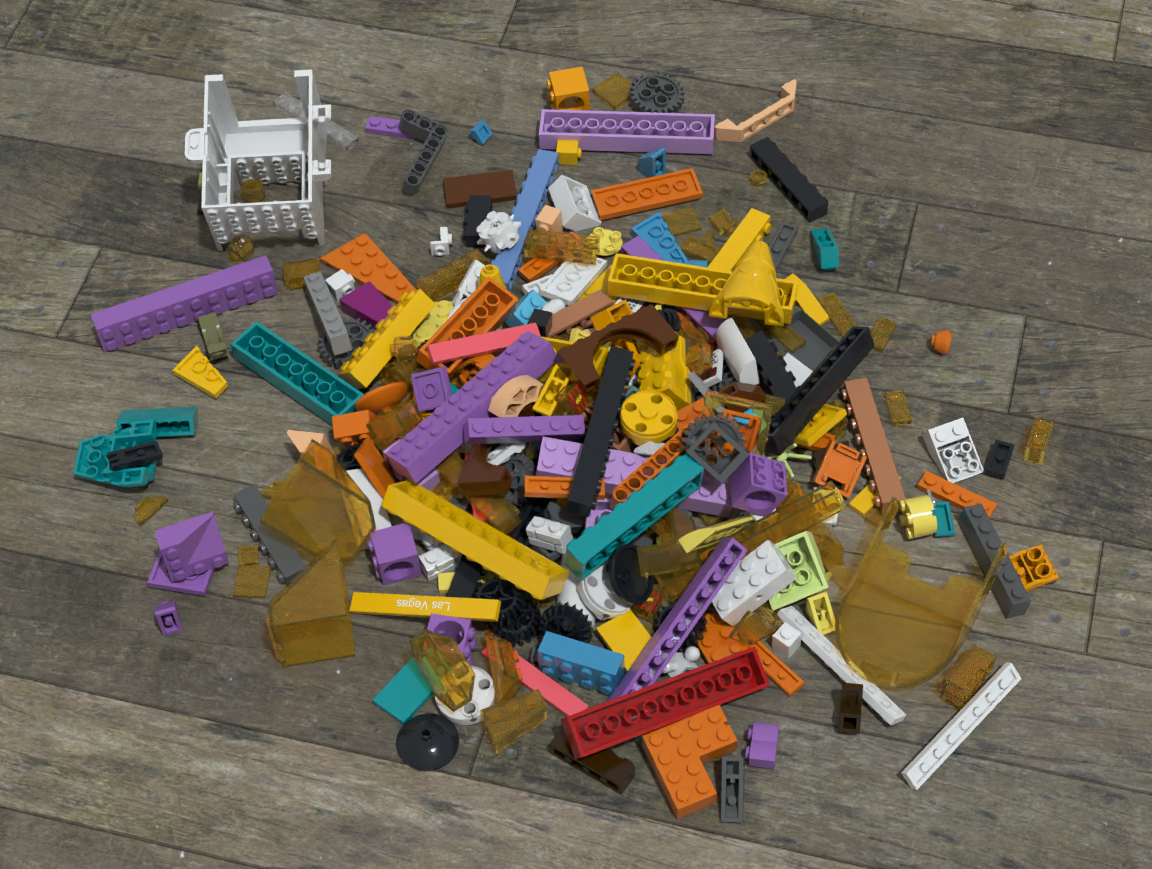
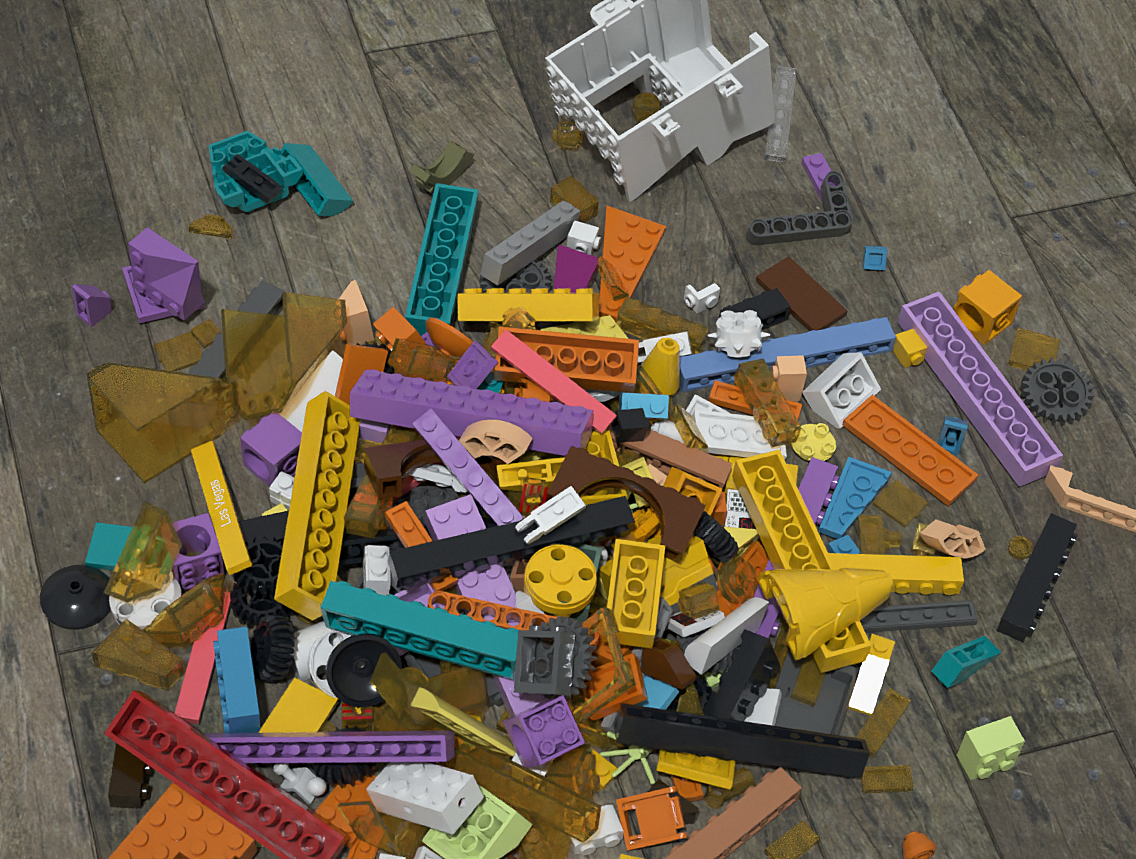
camera: 50 degrees right, 0 degrees up
(184, 303) = (466, 124): medium lavender brick -> none
(200, 373) = (395, 184): yellow wing -> none
(392, 285) = (611, 279): none -> clear yellow slope
(558, 298) = (687, 428): none -> clear yellow slope
(604, 390) = (552, 514): none -> white hinge
(685, 377) = (635, 591): none -> yellow brick
(736, 204) = (953, 540): none -> light nougat brick
(900, 266) = (990, 748): none -> yellowish green brick

